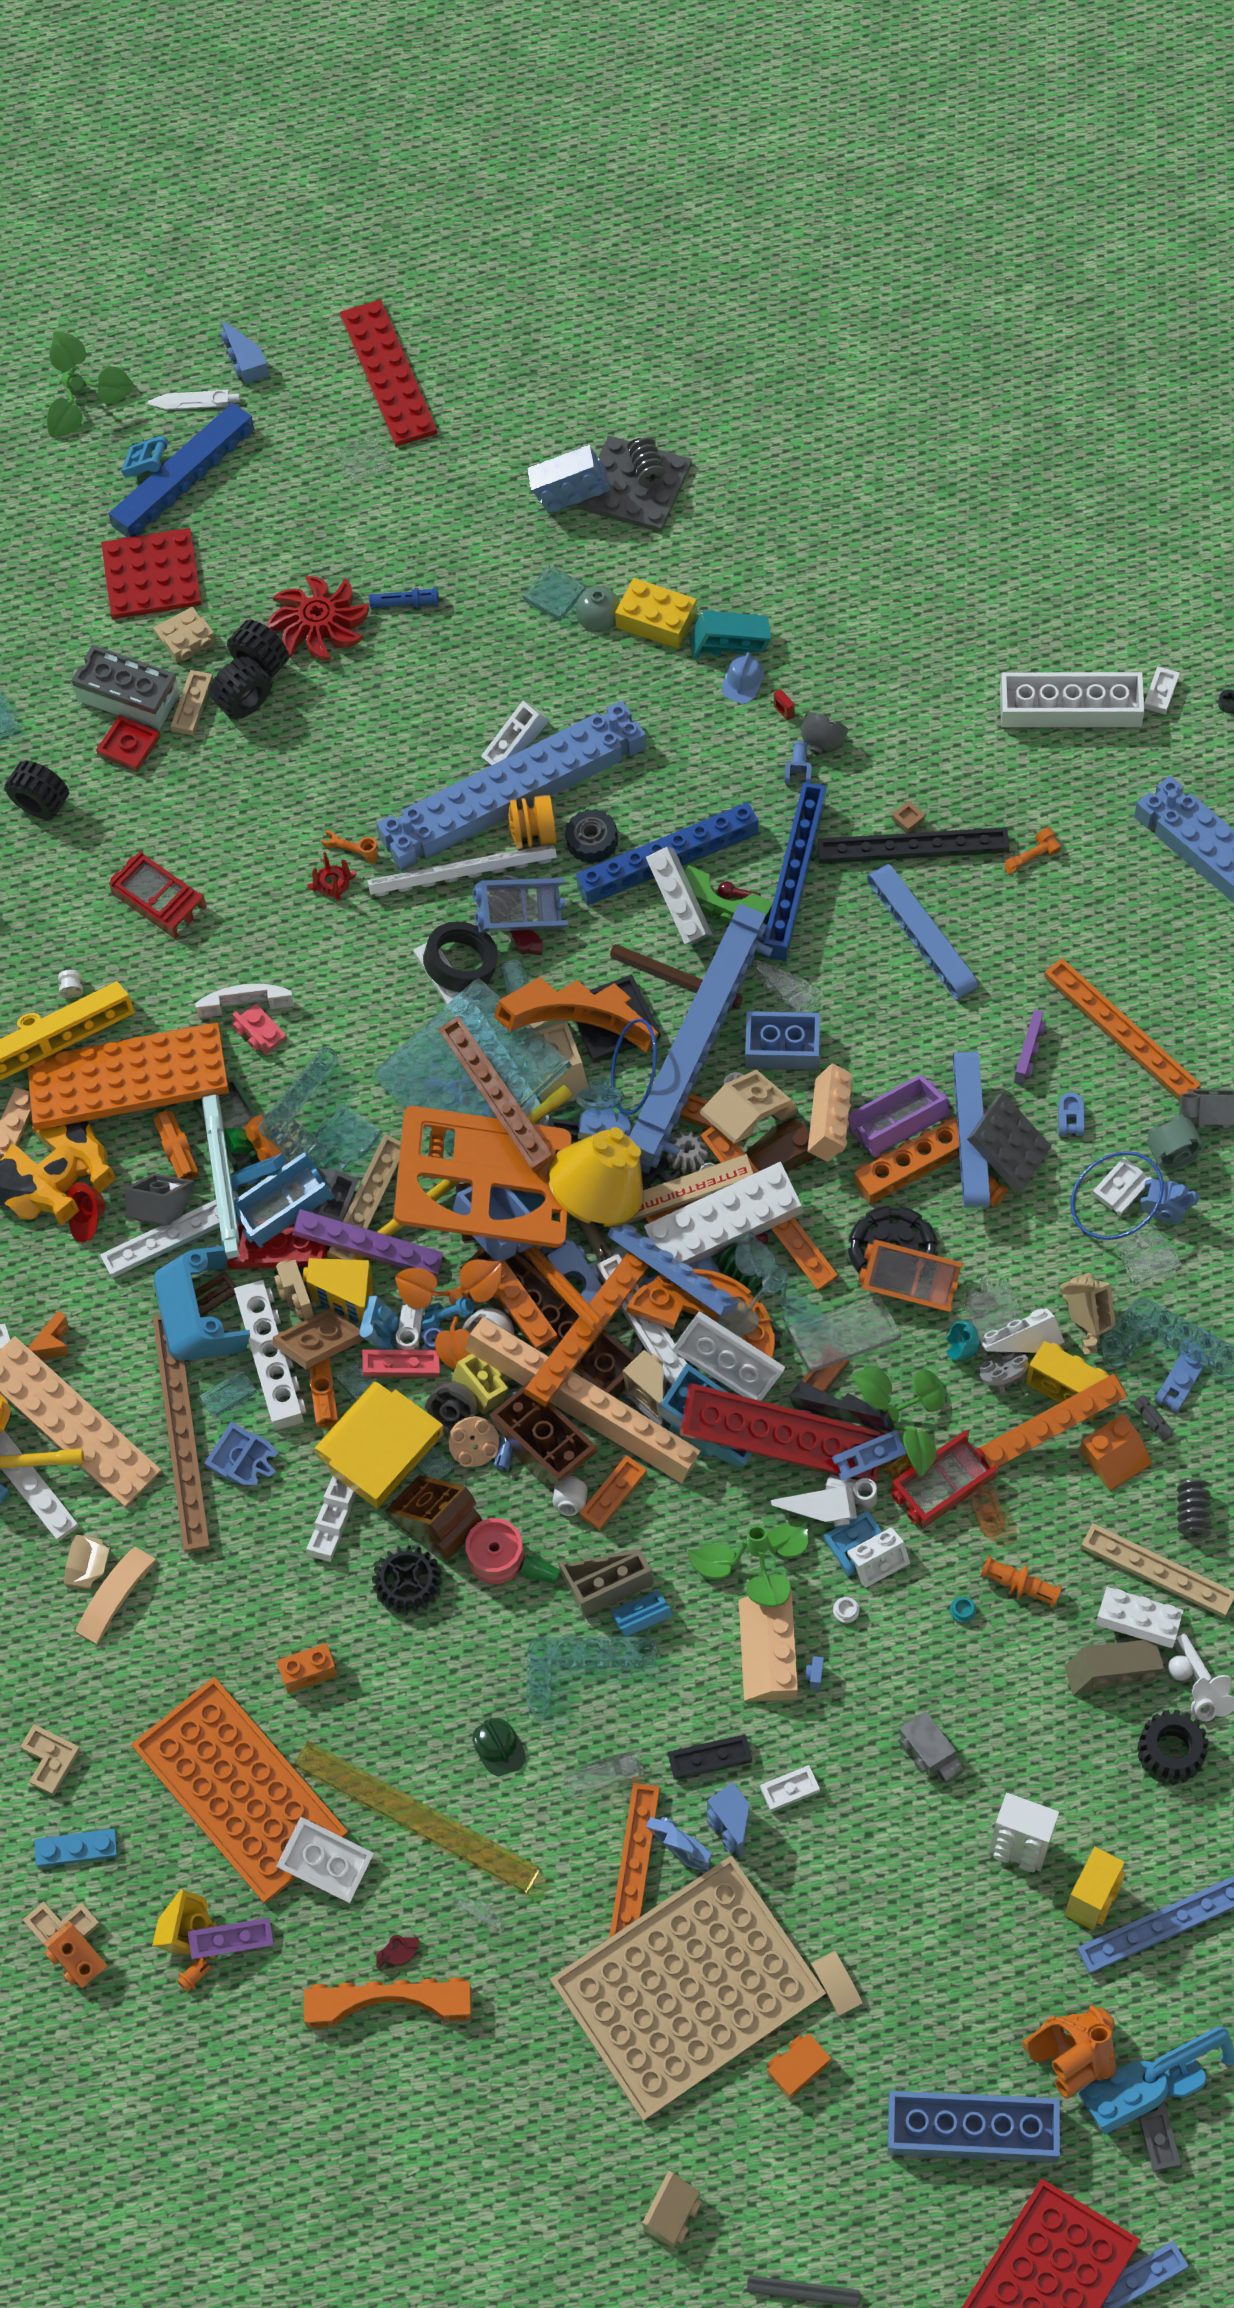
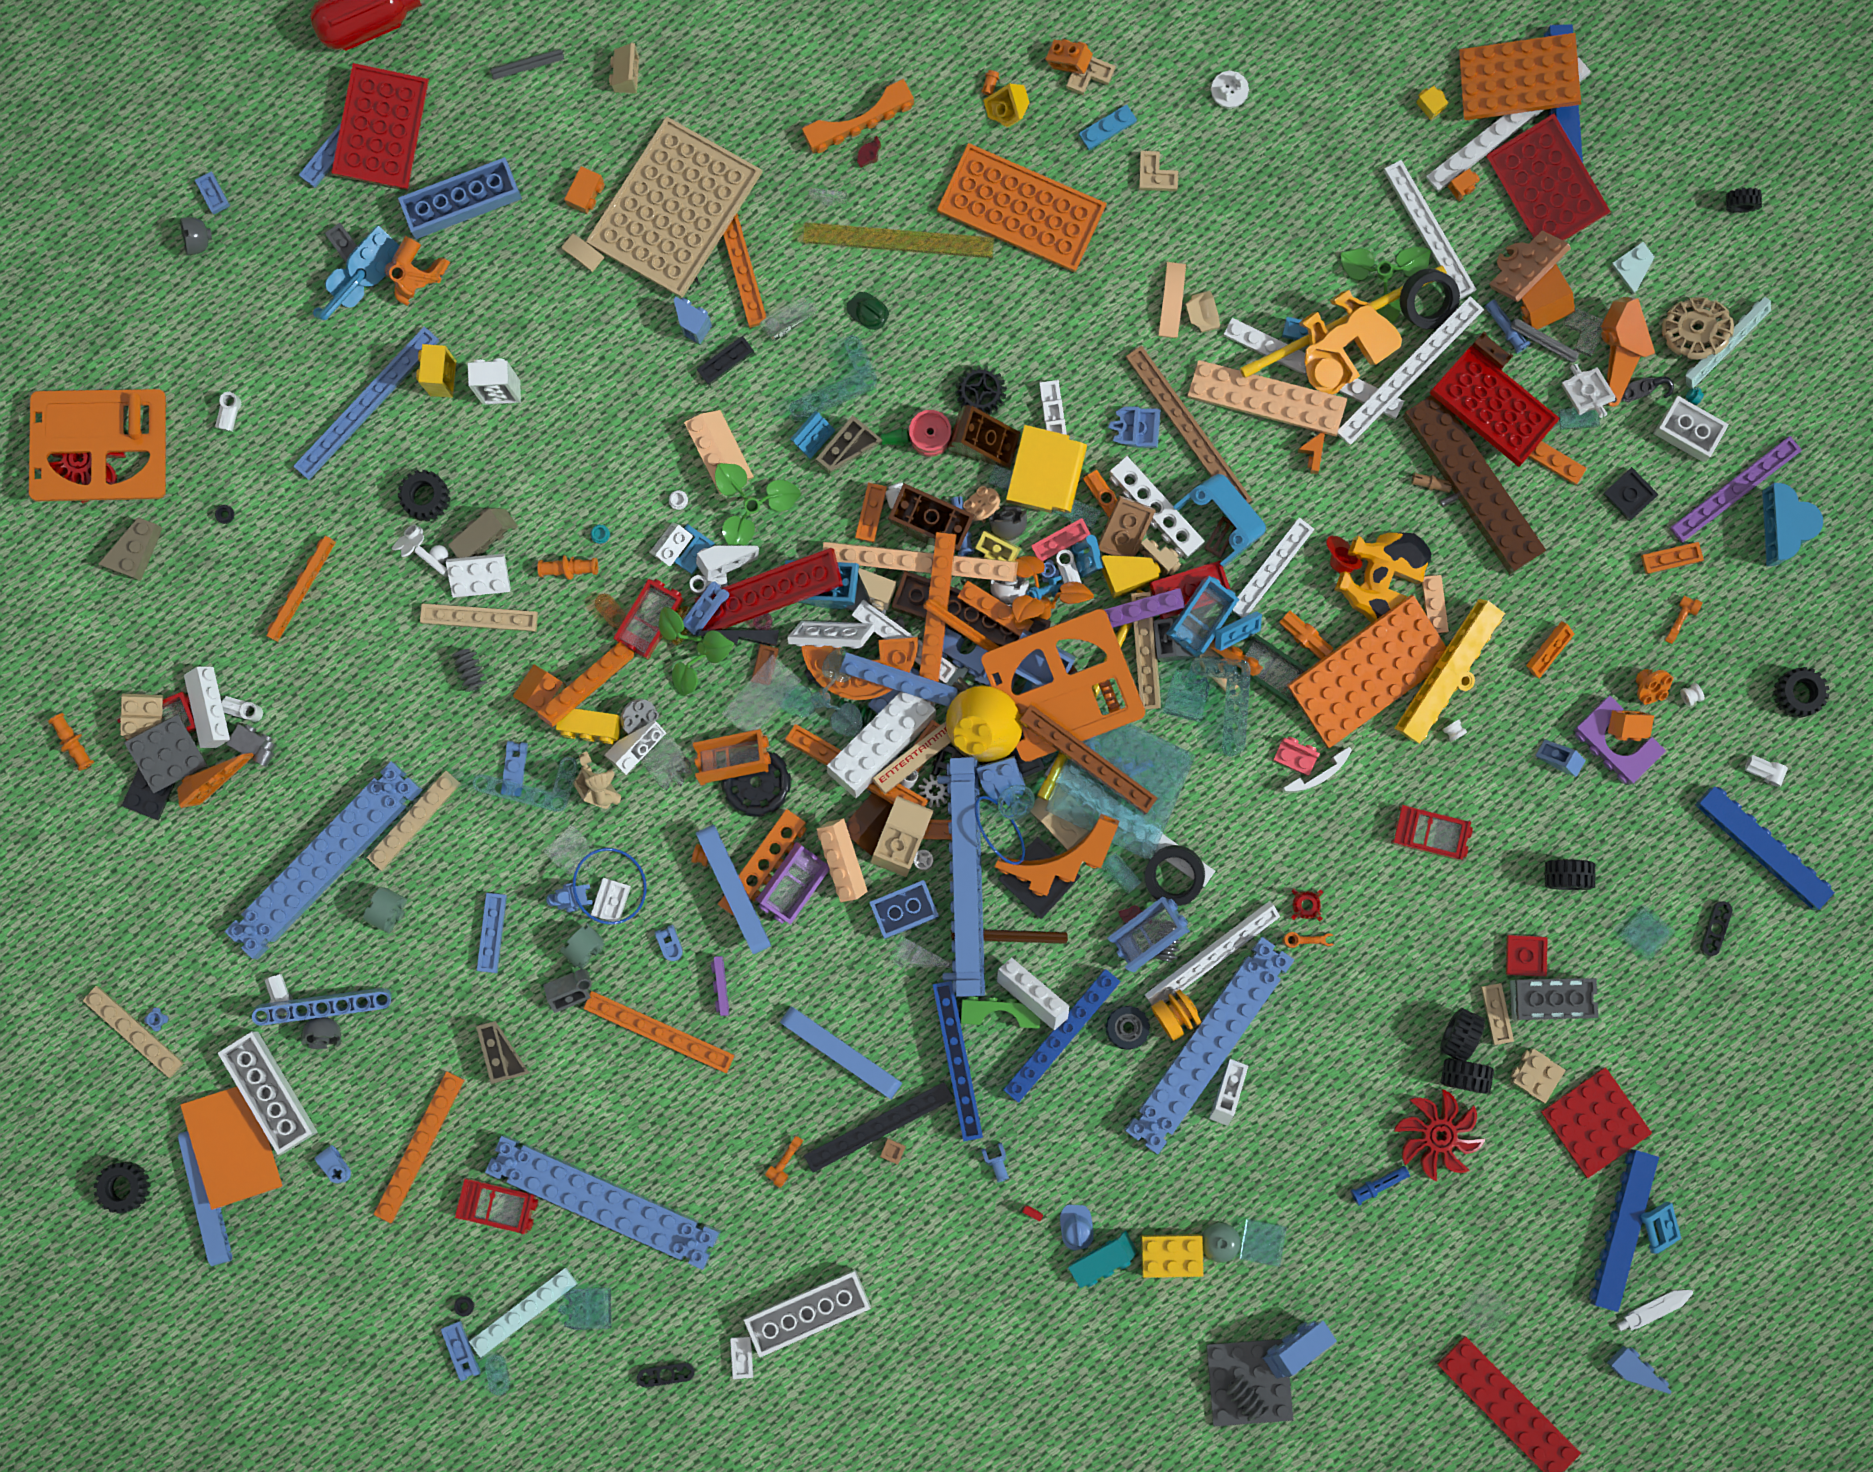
camera: 155 degrees right, 20 degrees up
(64, 355) = (1771, 1282): bright green plant -> none
(158, 1198) = (1295, 587): dark grey slope -> none
(221, 1175) = (1256, 616): light aqua piece -> none
(227, 1394) = (1170, 468): clear light blue plate -> none
(230, 1938) = (976, 109): medium lavender plate -> none
(237, 1140) = (1264, 655): green plate -> none
(307, 1668) = (1017, 302): orange brick -> none
(324, 1860) = (941, 182): white plate -> none
(685, 1847) = (714, 286): medium blue plate -> none
(728, 890) = (1003, 1028): dark red bar -> none
(789, 1788) = (664, 362): white plate -> none
(814, 1673) = (680, 445): medium blue plate -> none
(822, 733) = (989, 1196): dark grey cylinder -> none
(929, 1748) = (583, 425): flat silver hinge -> none
(963, 1340) = (675, 725): teal hair -> none
(1009, 1142) = (701, 890): dark grey plate -> none
(1153, 1418) = (523, 729): dark grey axle -> none

